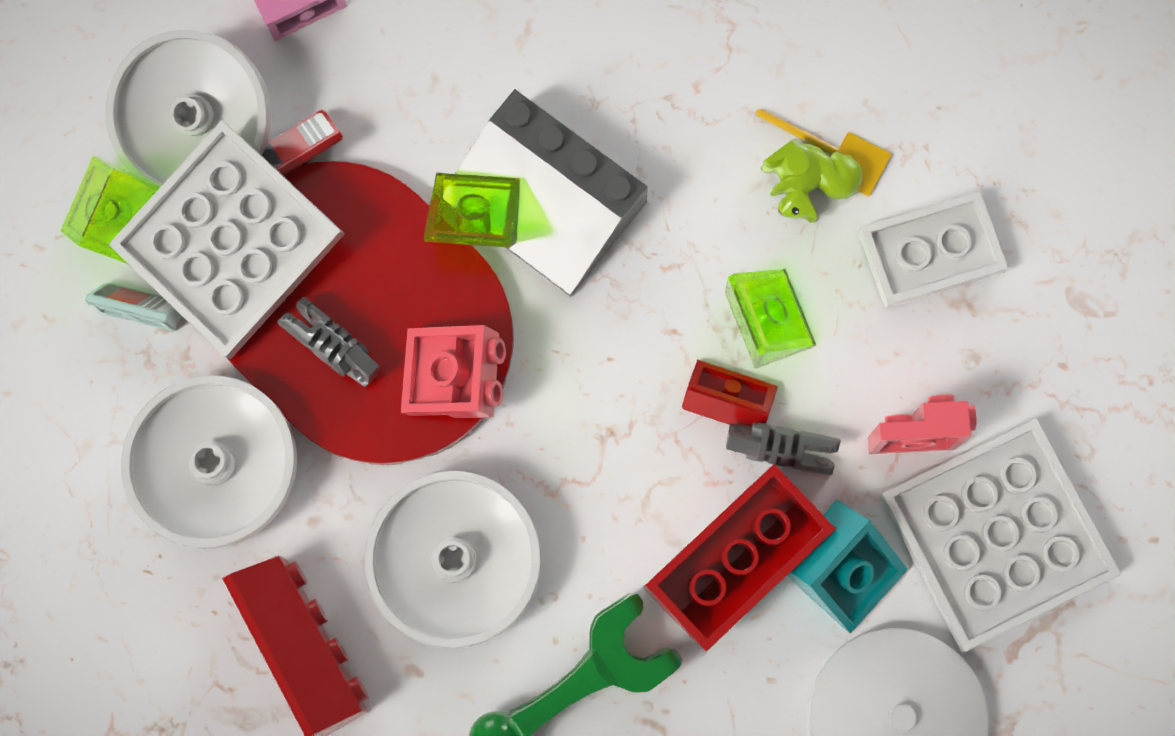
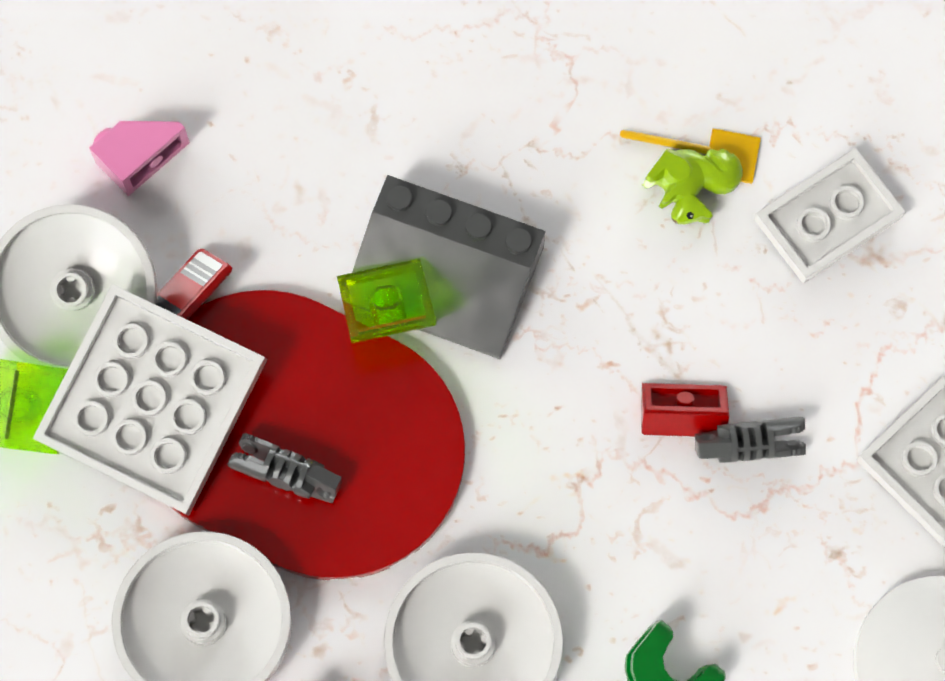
camera: 25 degrees left, 5 degrees down
(133, 306) = (74, 493): light aqua slope -> none
(452, 371) = (414, 462): coral plate -> none
(739, 558) = (746, 557): red slope -> none
(768, 315) = (695, 322): clear neon green slope -> none
(849, 568) = (845, 534): teal slope -> none
(933, 427) = (888, 379): coral plate -> none

